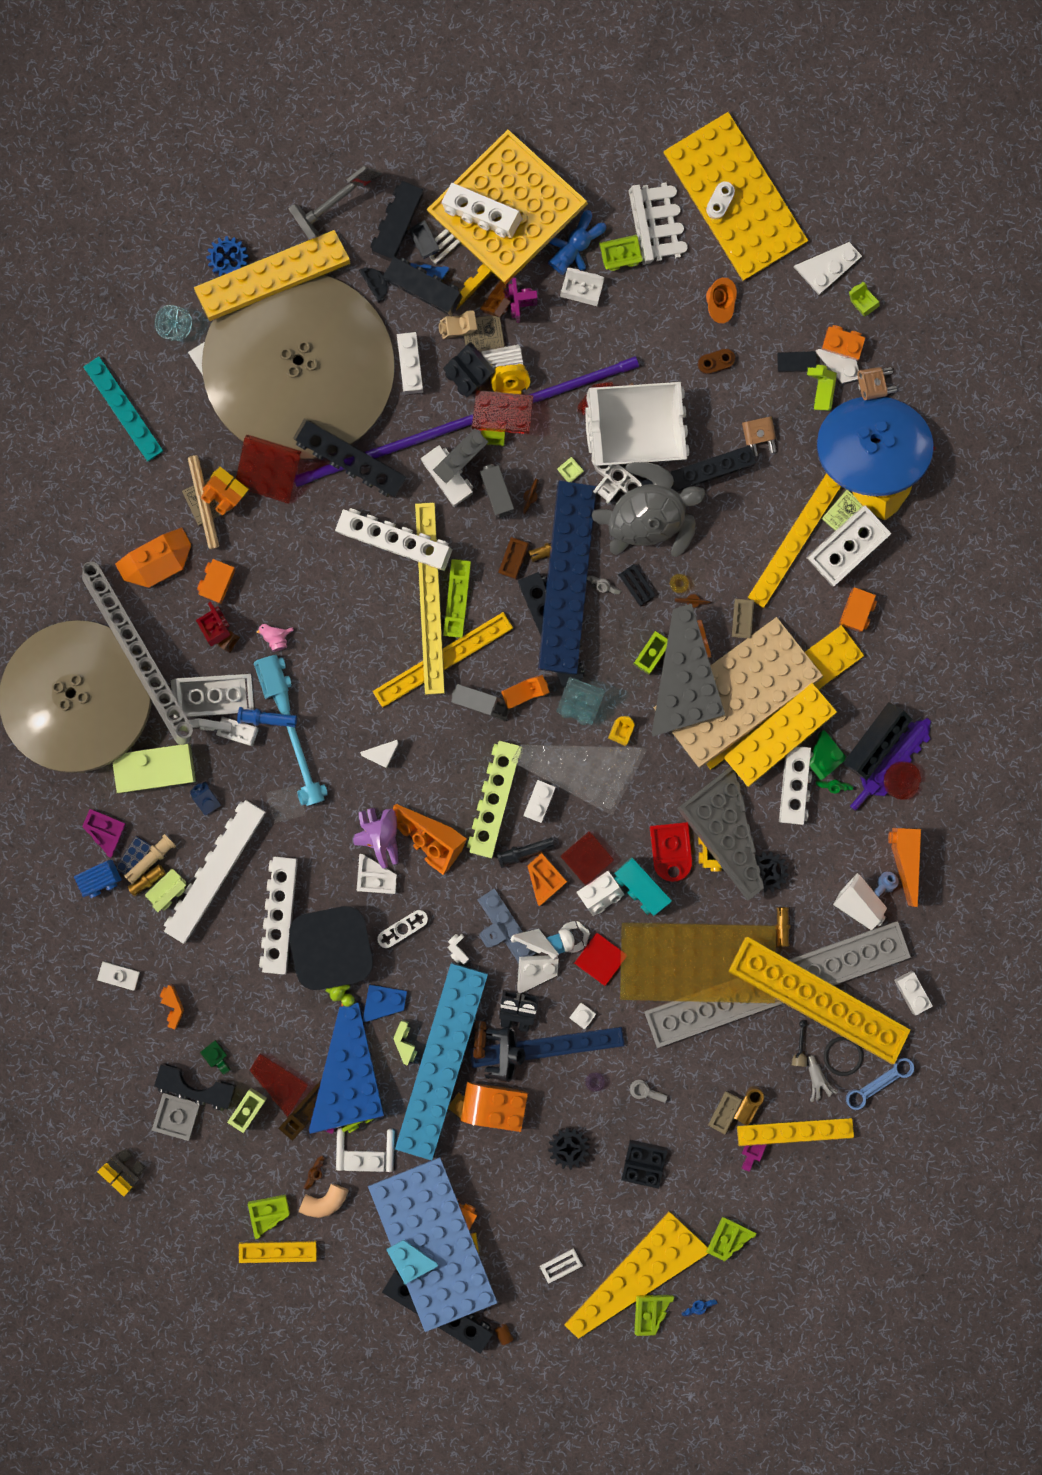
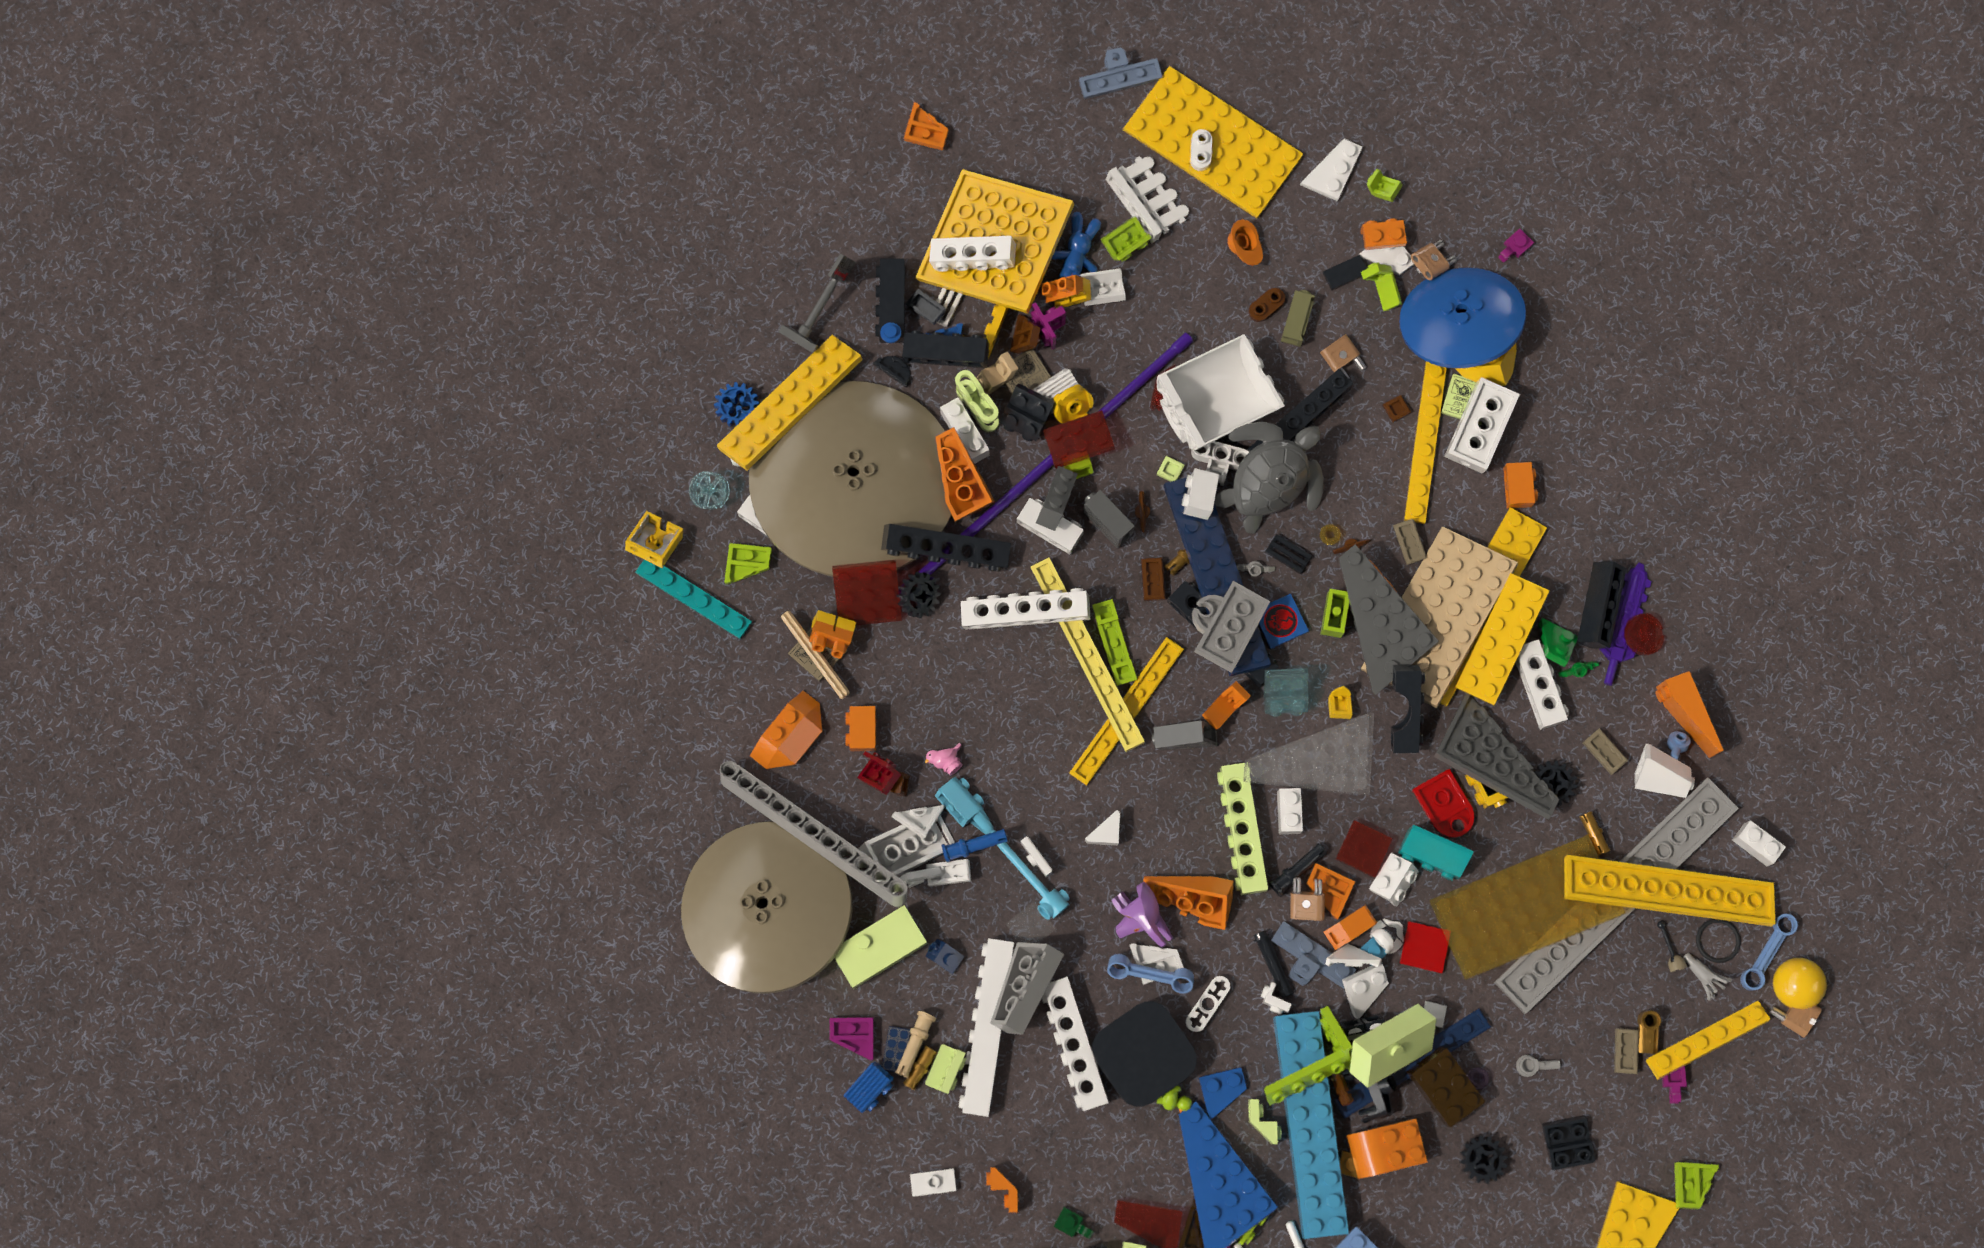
camera: 20 degrees left, 10 degrees down
(109, 335) = (649, 529): none -> yellow piece
(179, 397) = (746, 561): none -> lime wing
(231, 678) = (919, 819): none -> white tile
(257, 851) = (1024, 985): none -> light grey wedge
(310, 486) = (919, 593): none -> black gear
(313, 749) = (1035, 857): none -> white plate
(365, 885) = (1150, 973): none -> medium blue piece
(382, 251) = (890, 332): none -> blue plate
(388, 404) = (962, 481): none -> orange wedge
(430, 342) = (977, 401): none -> yellowish green piece
(467, 1022) = (1318, 1070): none -> lime bracket
(470, 919) = (1273, 963): none -> black axle
(491, 79) = (925, 130): none -> orange wing
(518, 883) = (1307, 904): none -> medium nougat piece
(533, 1028) = (1392, 1045): none -> yellowish green brick
(546, 917) = (1350, 927): none -> orange slope
(548, 277) = (1067, 291): none -> orange hips
(554, 626) = (1228, 624): none -> light grey plate
(564, 1078) = (1445, 1086): none -> dark brown brick
(583, 504) = (1200, 493): none -> white brick
(604, 639) = (1282, 622): none -> tile
(664, 778) = (1406, 734): none -> black arch
(681, 102) = (1119, 75): none -> sand blue plate
(737, 384) = (1298, 318): none -> olive window
(785, 499) = (1396, 408): none -> reddish brown tile
(823, 863) = (1605, 751): none -> dark tan plate
(881, 1144) = (1798, 1019): none -> medium nougat piece
(892, 1119) = (1799, 983): none -> yellow piece
(954, 399) = (1516, 244): none -> magenta plate

